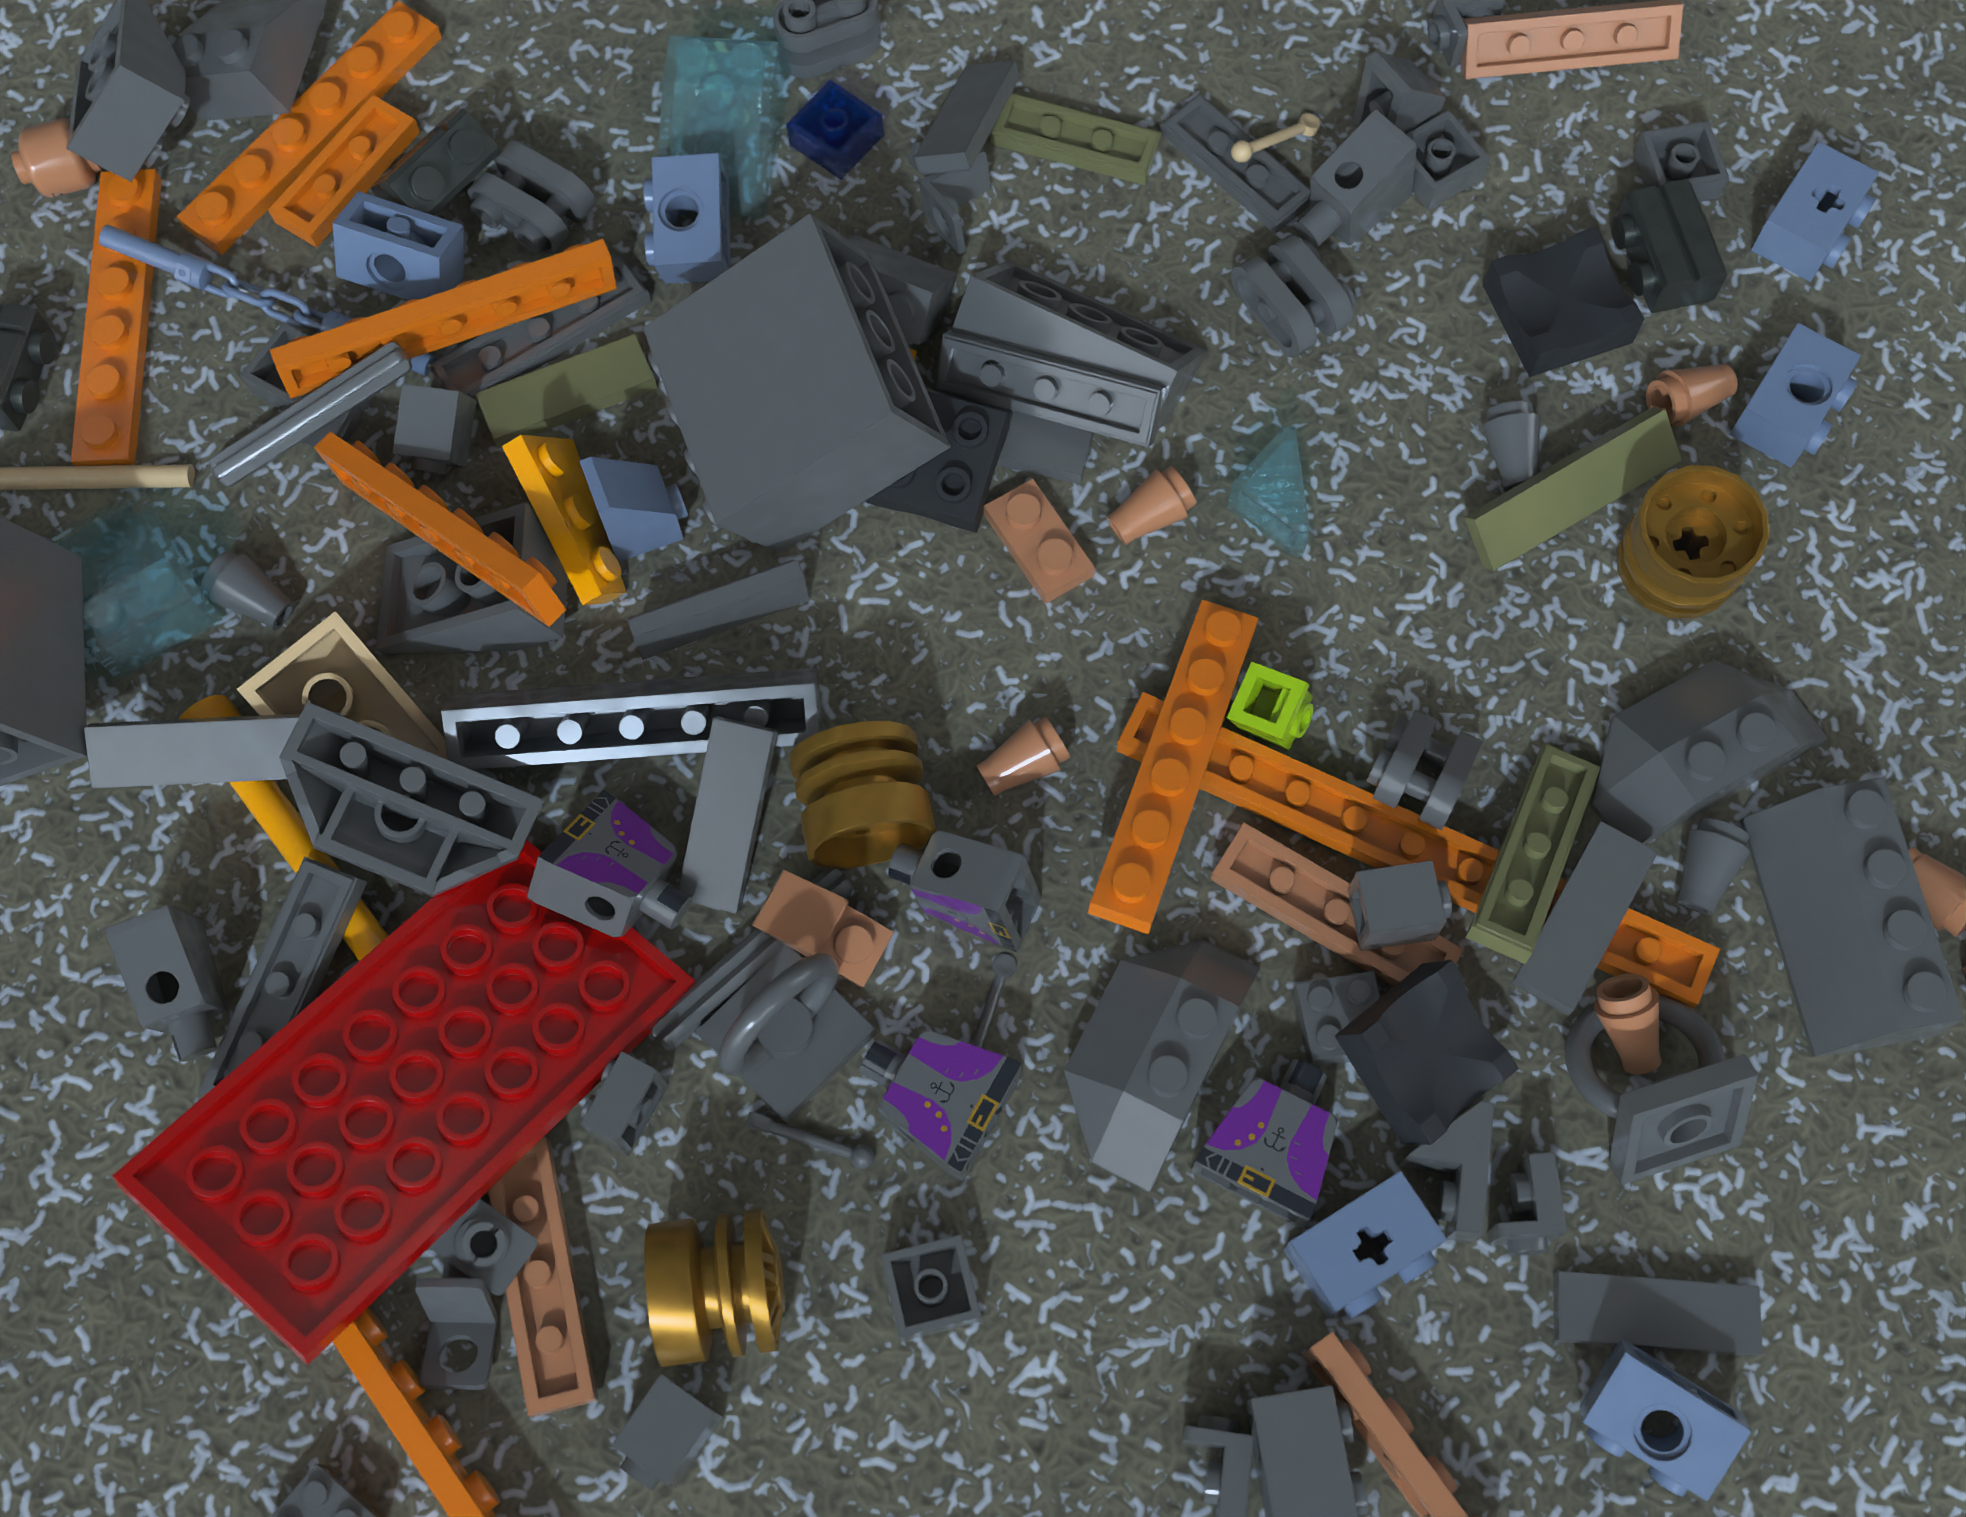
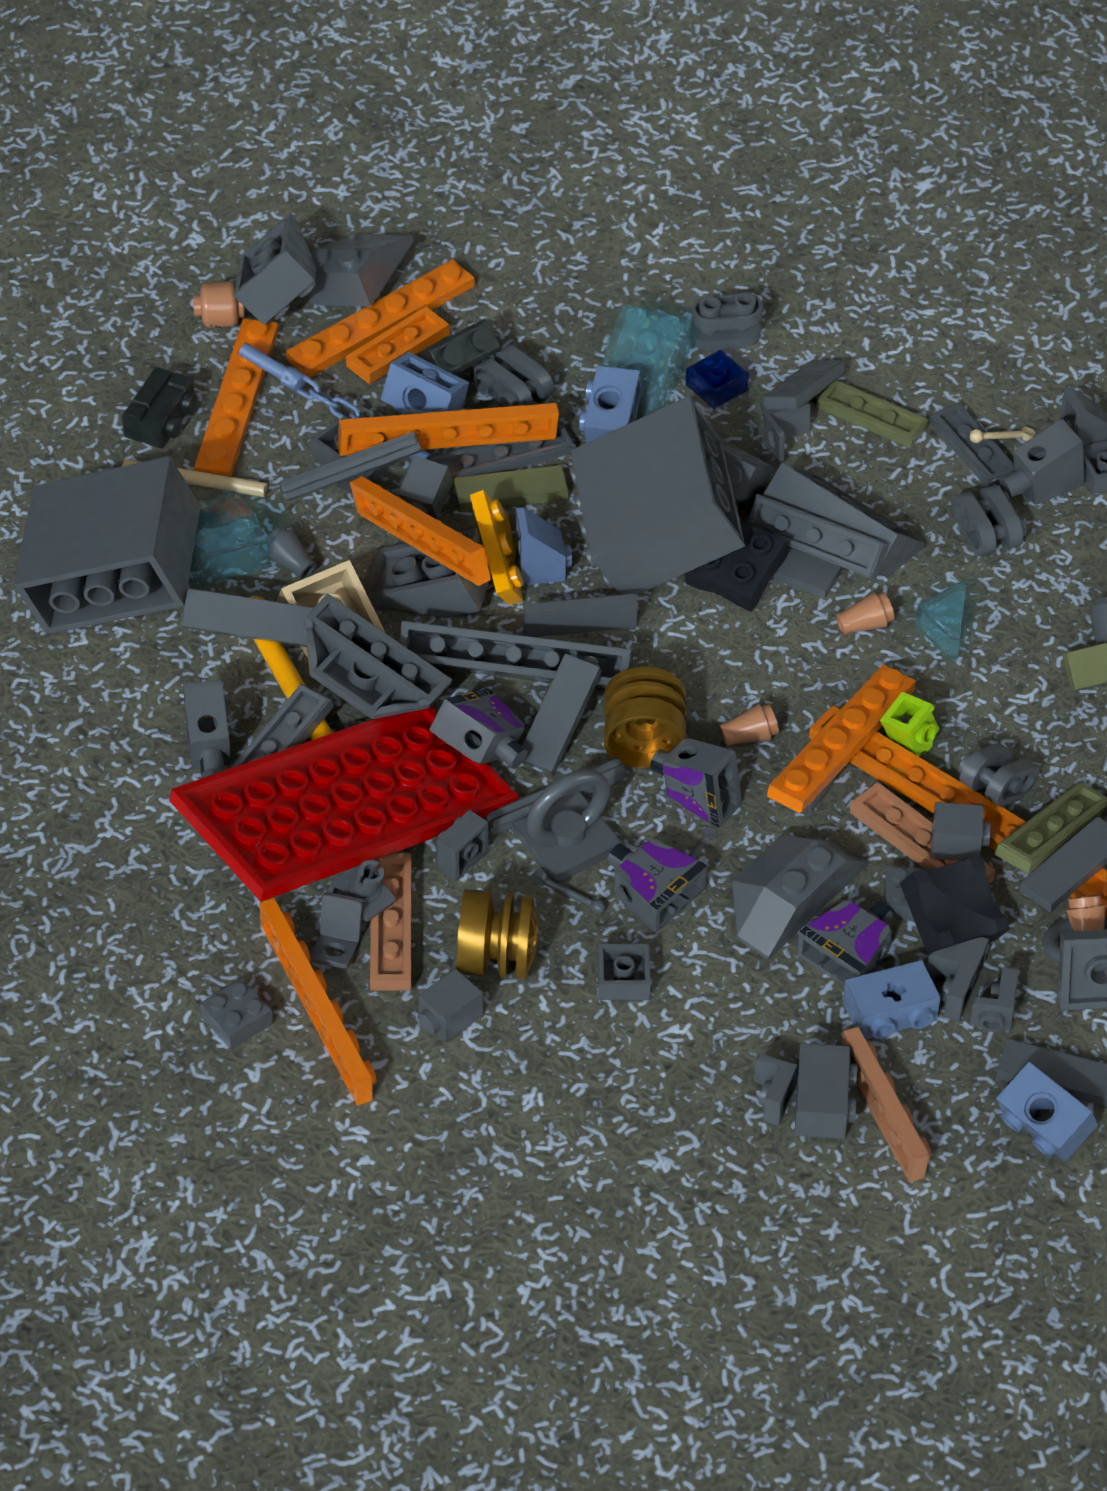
camera: 10 degrees right, 20 degrees down
(822, 922) = (623, 794): nougat slope -> none
(1039, 541) = (789, 621): nougat plate -> none

